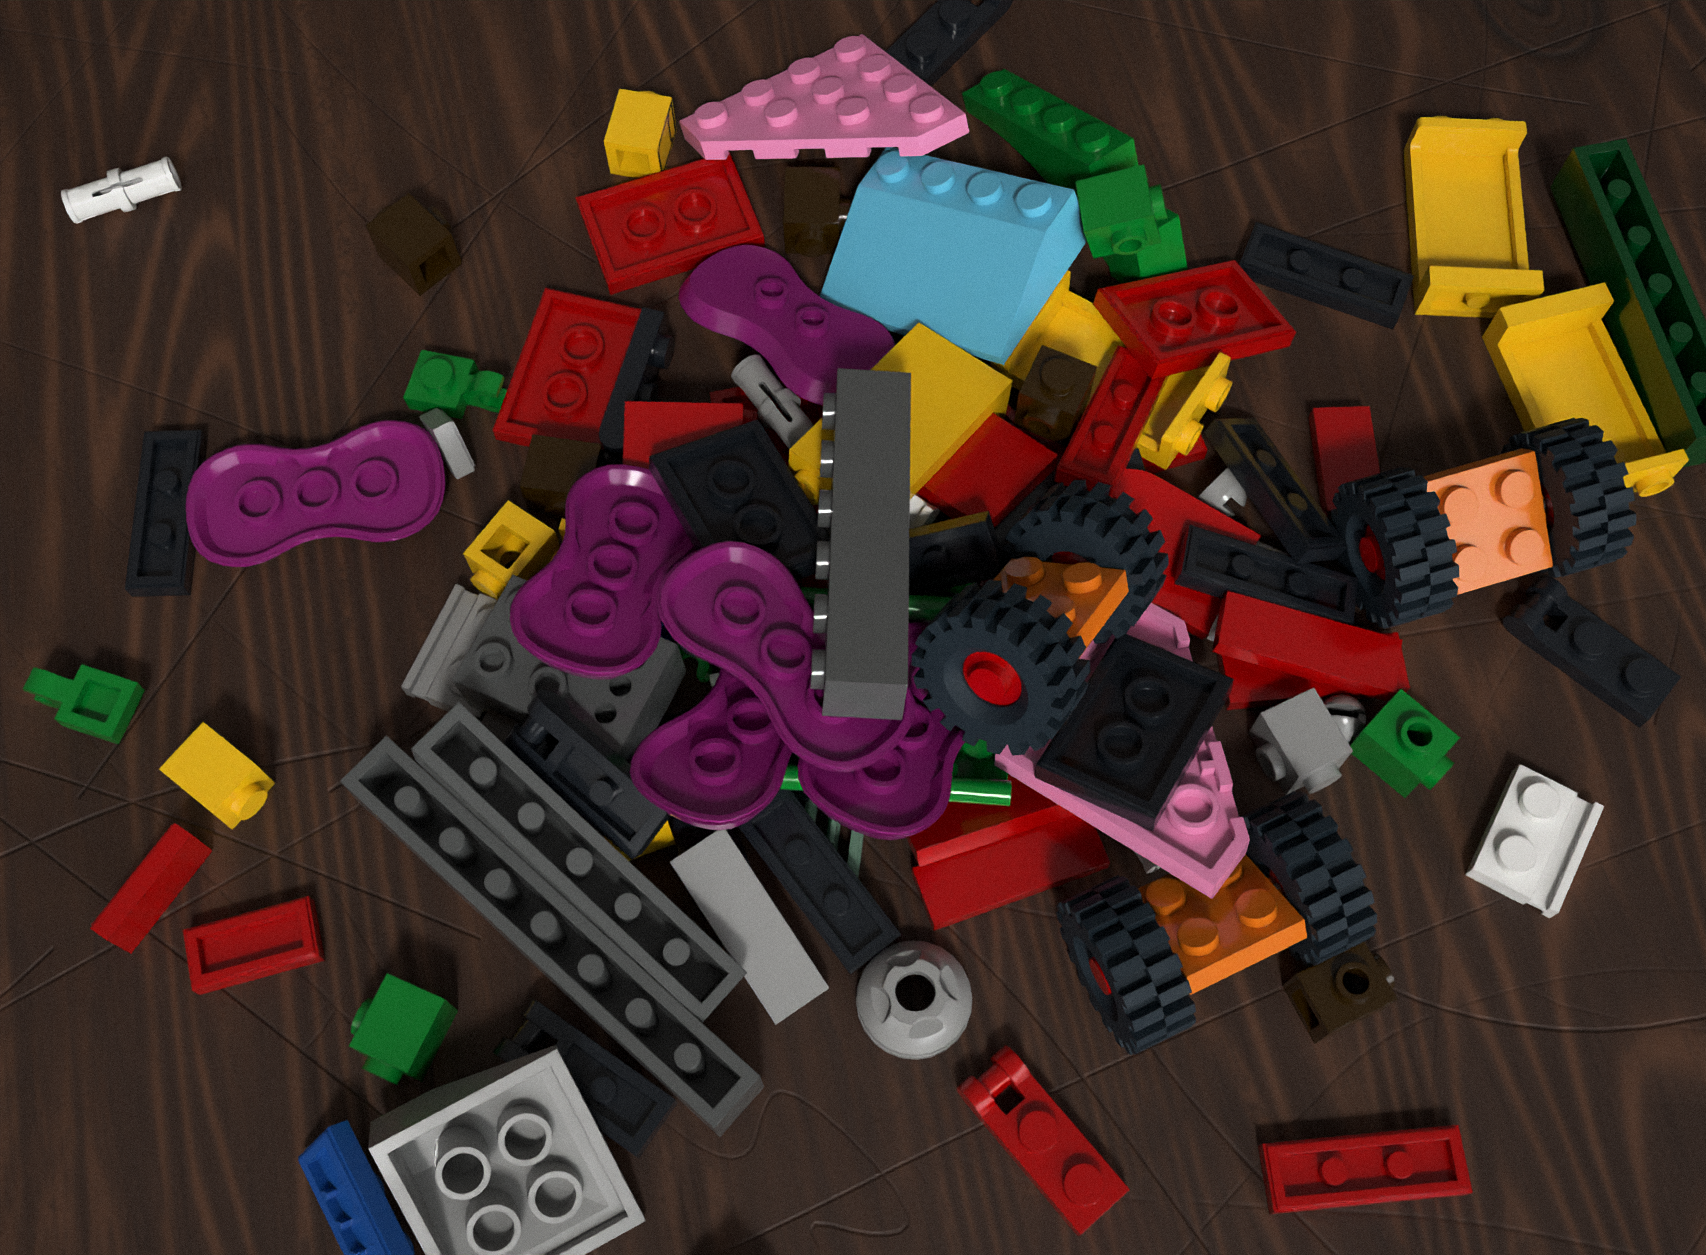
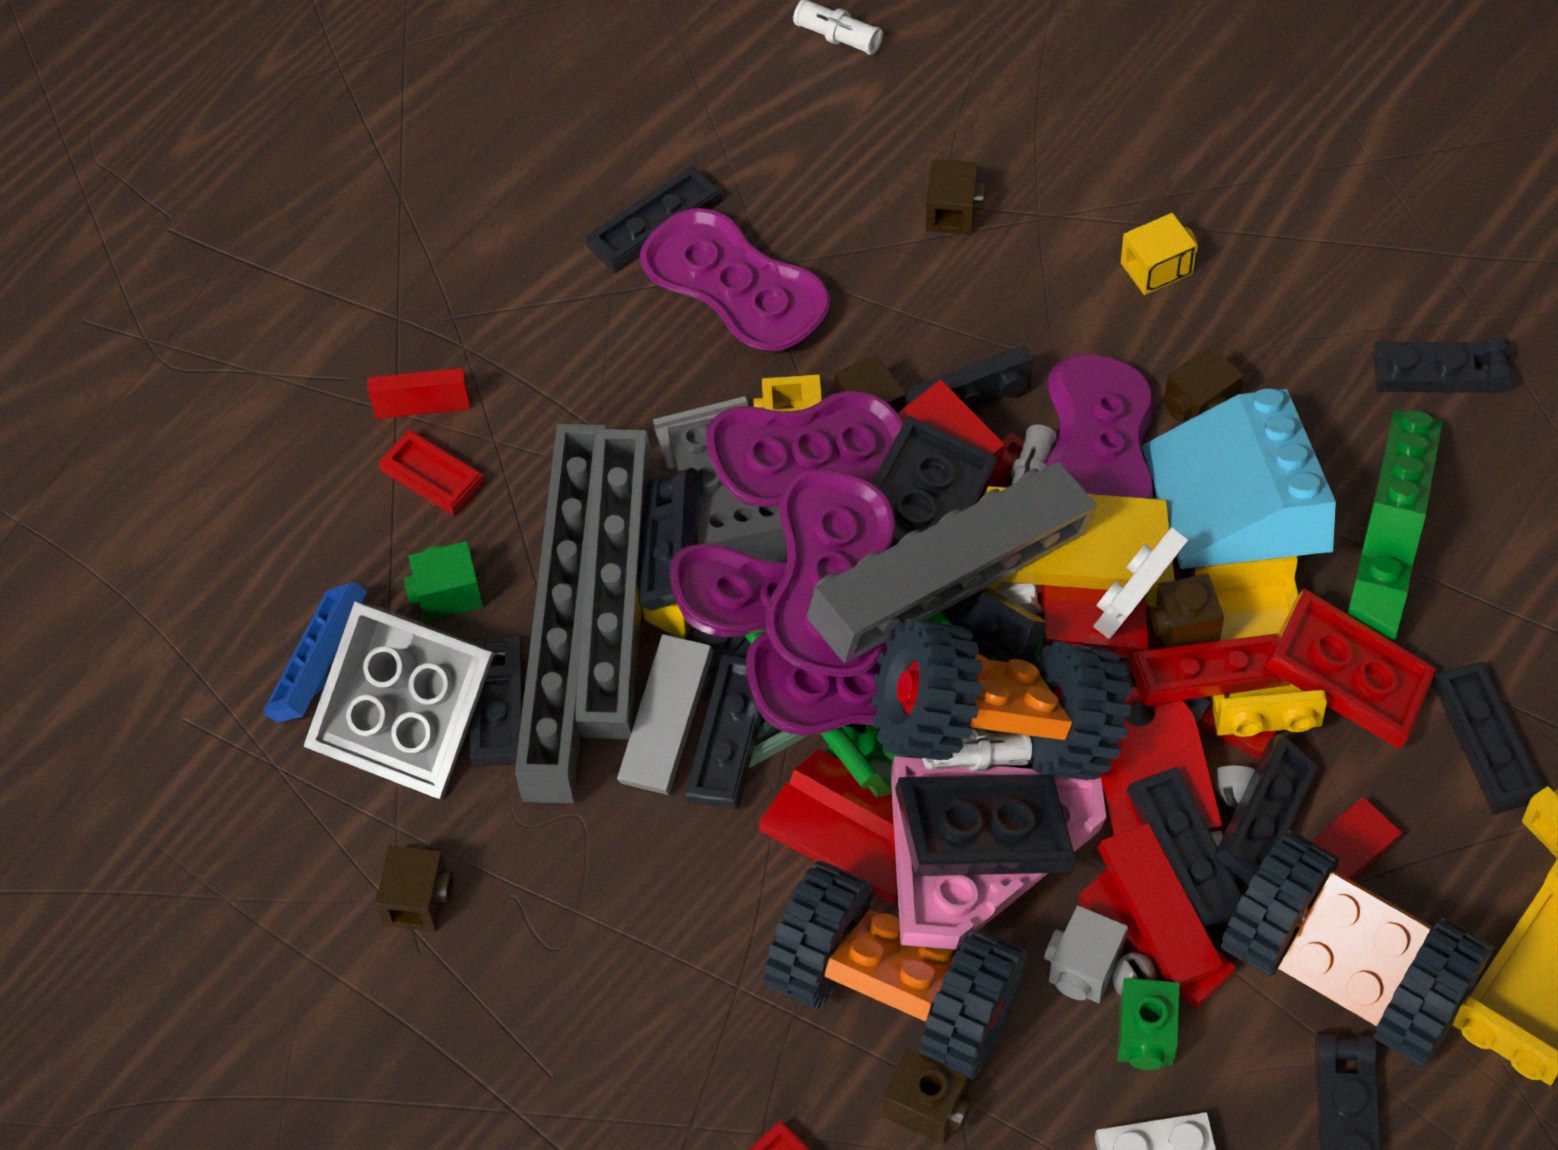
camera: 55 degrees right, 10 degrees down
(90, 703) = (501, 275): green plate -> none
(218, 776) = (512, 371): yellow brick -> none
(449, 442) = (837, 309): light grey tile -> none
(452, 384) = (877, 291): green plate -> none
(566, 369) = (948, 339): red tile -> none
(668, 222) = (1116, 319): red tile -> none
(835, 102) = (1285, 337): bright pink plate -> none
(910, 1032) = (707, 869): light grey piece -> none
(1011, 405) = (1147, 568): none -> white plate
(1044, 1142) = (672, 989): red plate -> none
(1120, 211) = (1360, 548): green brick -> none

